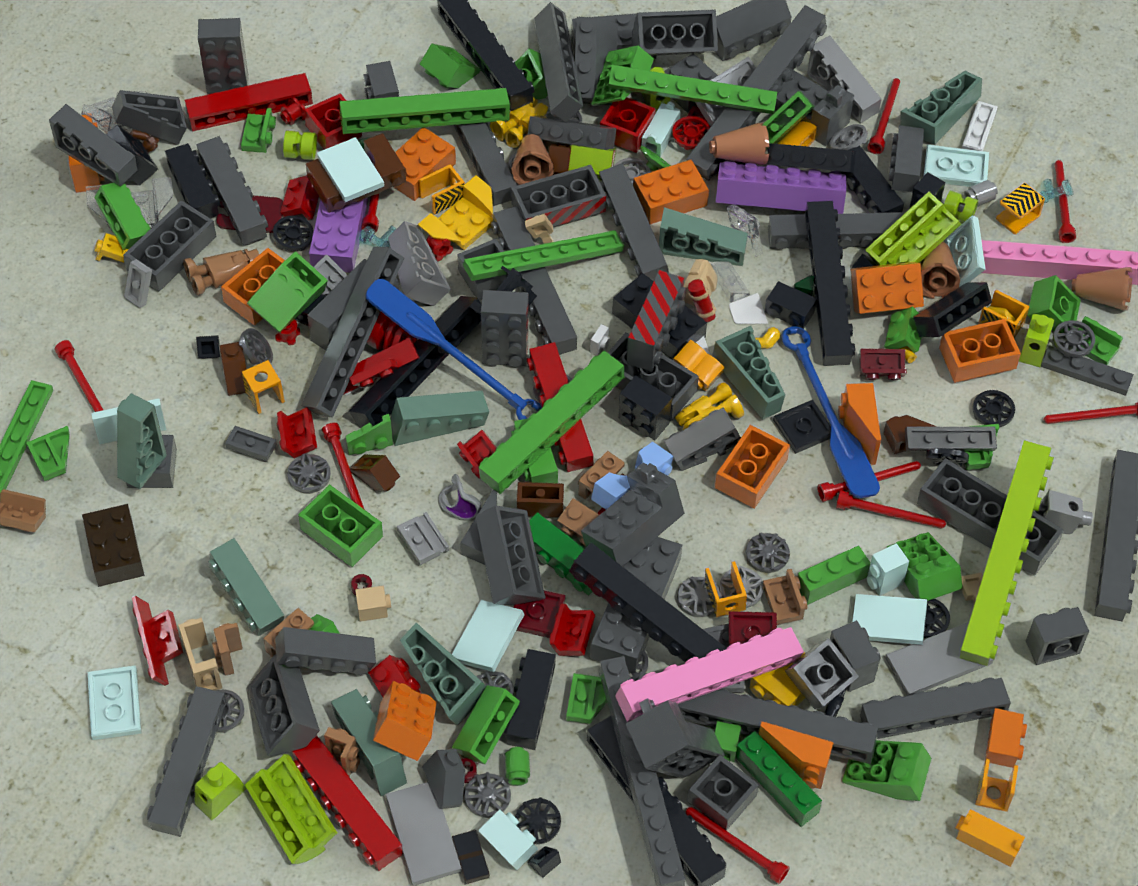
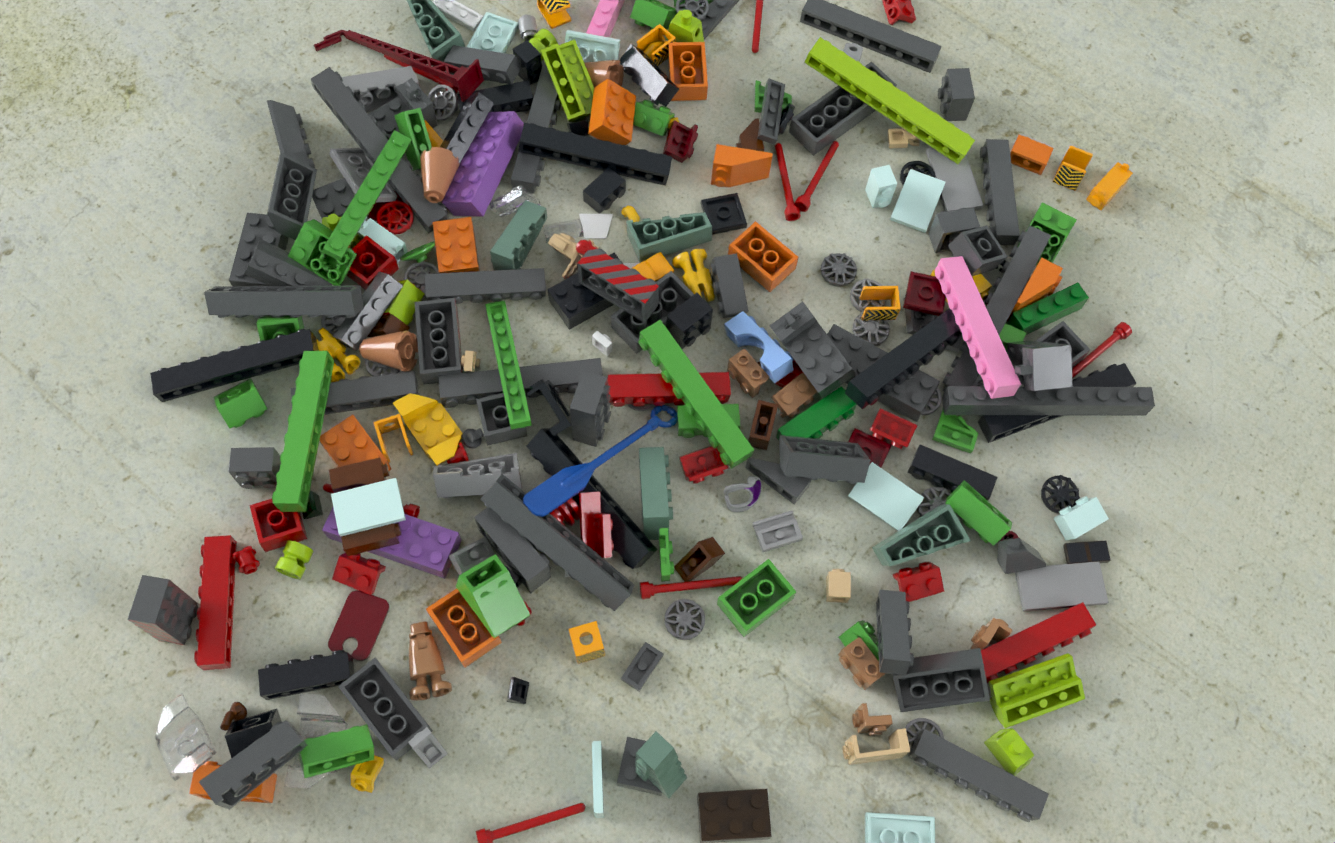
camera: 80 degrees left, 10 degrees up
(151, 114) = (207, 702): dark grey wedge -> none
(159, 638) = (843, 784): red bracket -> none
(232, 190) = (329, 636): dark grey brick -> none
(233, 365) = (553, 668): reddish brown slope -> none
(245, 587) = (805, 695): sand green wedge -> none
(255, 347) = (536, 642): flat silver wheel -> none
(258, 132) = (258, 599): bright green bracket -> none
(293, 233) = (400, 586): black wheel -> none
(296, 432) = (640, 620): red bracket -> none
(358, 579) = (814, 586): dark red bush -> none
(368, 235) = (437, 506): clear light blue piece -> none
(381, 762) = (975, 611): sand green wedge -> none
(405, 720) = (977, 574): orange brick -> none
(456, 249) = (472, 438): none -> dark grey plate
(487, 794) = (1032, 527): flat silver wheel -> none
(517, 766) = (1012, 498): bright green brick -> none
(545, 860) = (1096, 491): black slope -> none
(785, 597) = (887, 265): medium nougat bracket -> none
(805, 285) = (590, 173): dark green slope -> none
(833, 574) = (873, 227): bright green brick -> none
(843, 445) = (752, 187): blue piece -> none
(874, 143) = (464, 78): none -> dark red piece
(930, 568) = (859, 162): bright green slope -> none
(993, 408) = (737, 80): black wheel -> none

